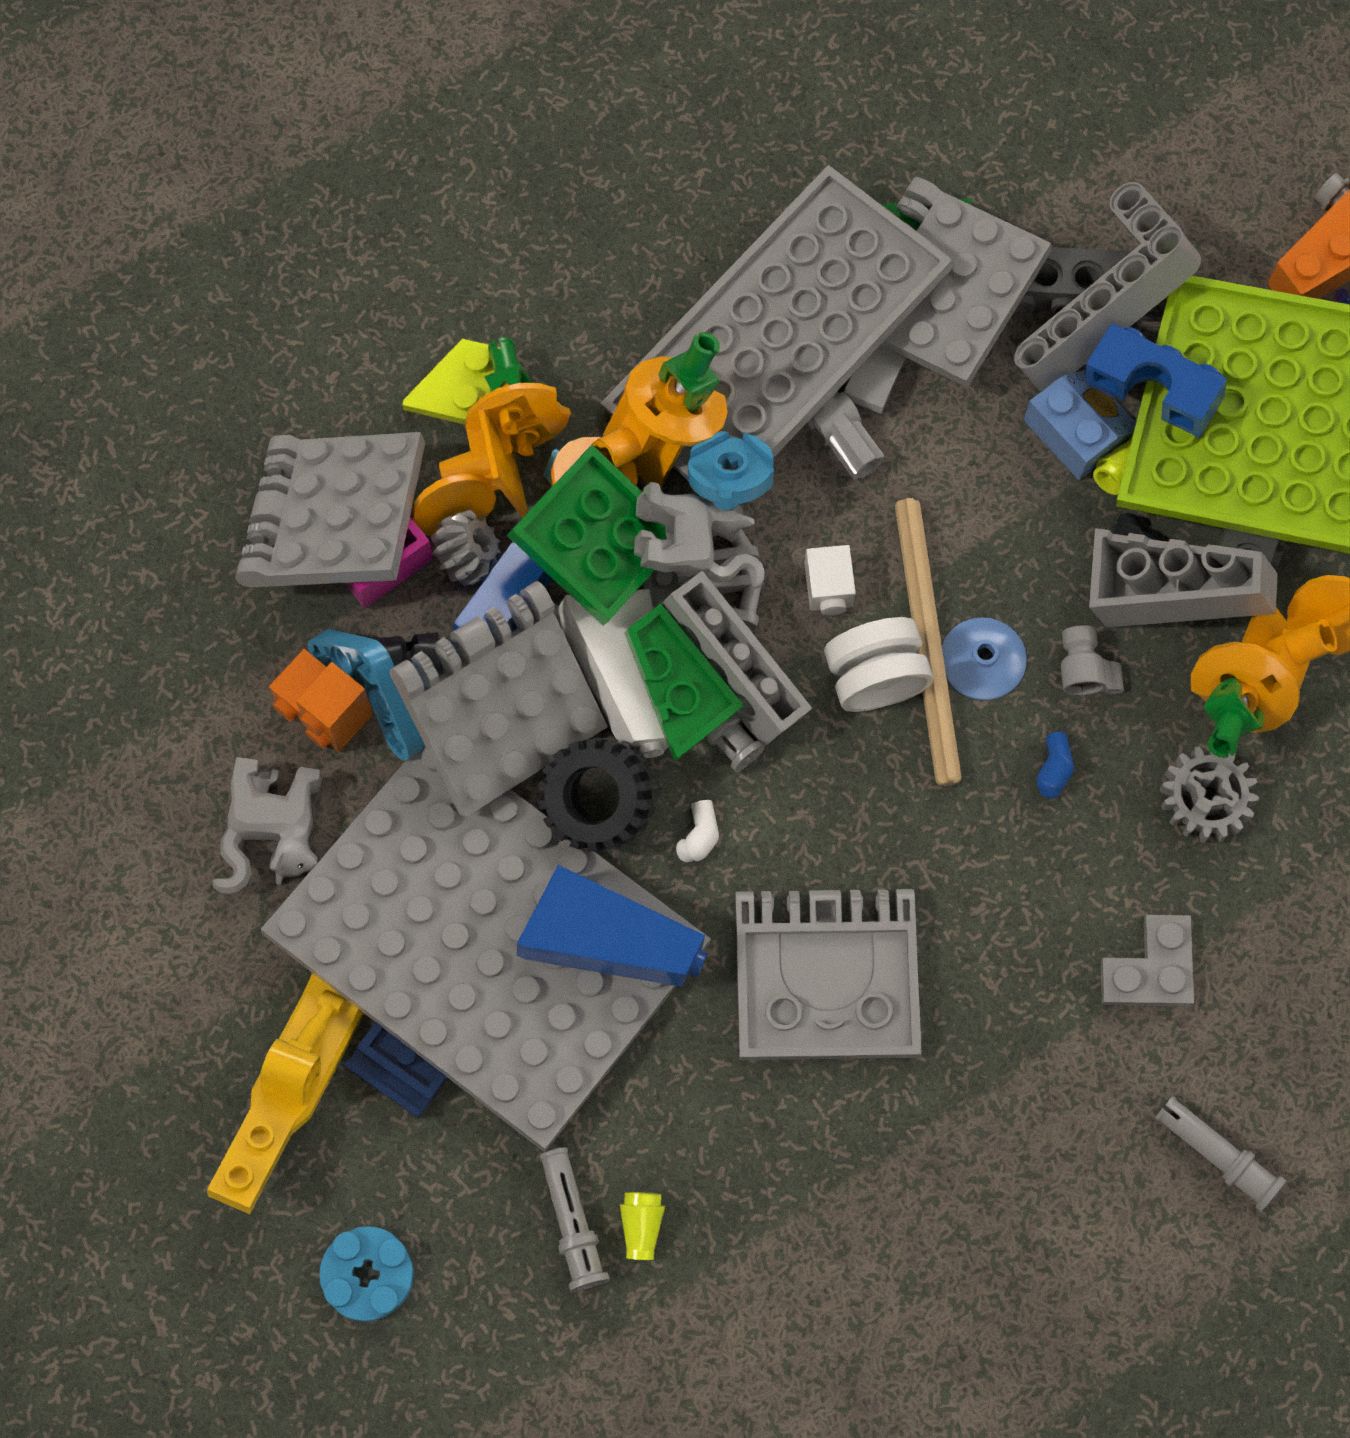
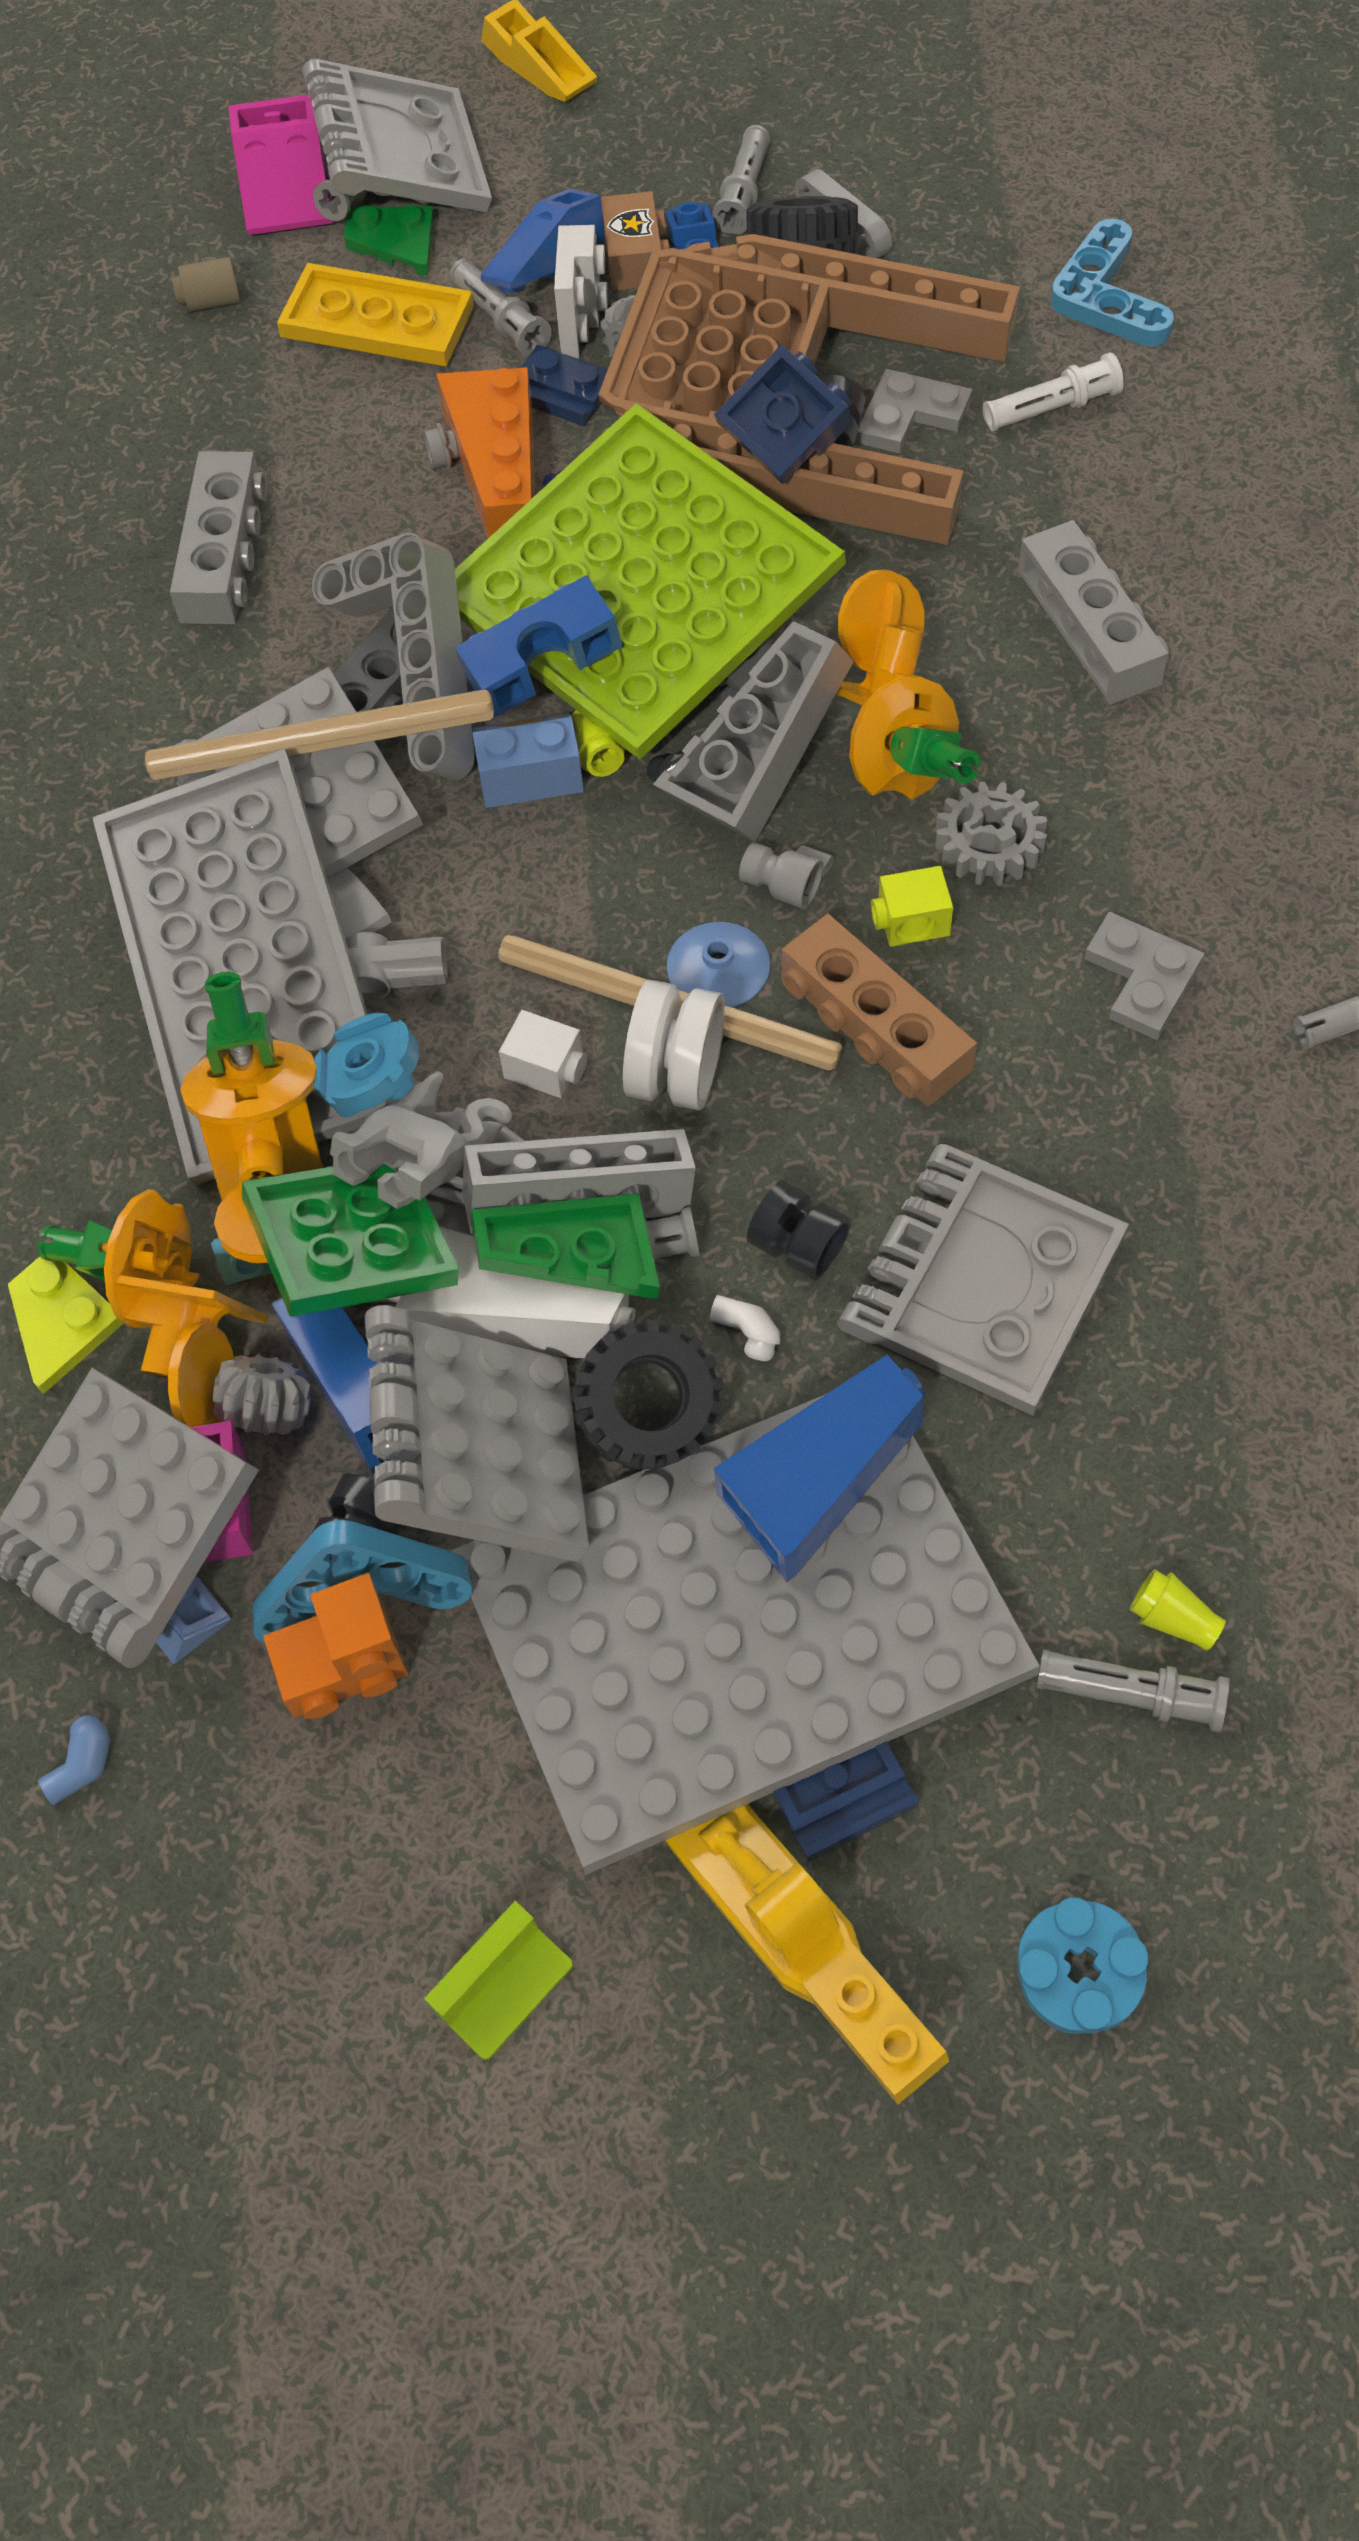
camera: 55 degrees left, 10 degrees down
(172, 919) = (499, 1982): none -> lime panel
(178, 590) = (84, 1760): none -> medium blue arm
(268, 816) = (443, 1791): light grey animal -> none
(301, 599) = (192, 1622): none -> medium blue slope
(786, 843) = (817, 1235): none -> black wheel
(985, 276) = (321, 734): none -> tan axle
(1029, 729) = (869, 985): none -> medium nougat brick
(1058, 766) = (886, 947): blue arm -> none
(1107, 770) = (913, 906): none -> neon yellow brick
(1192, 55) = (217, 538): none -> light grey brick

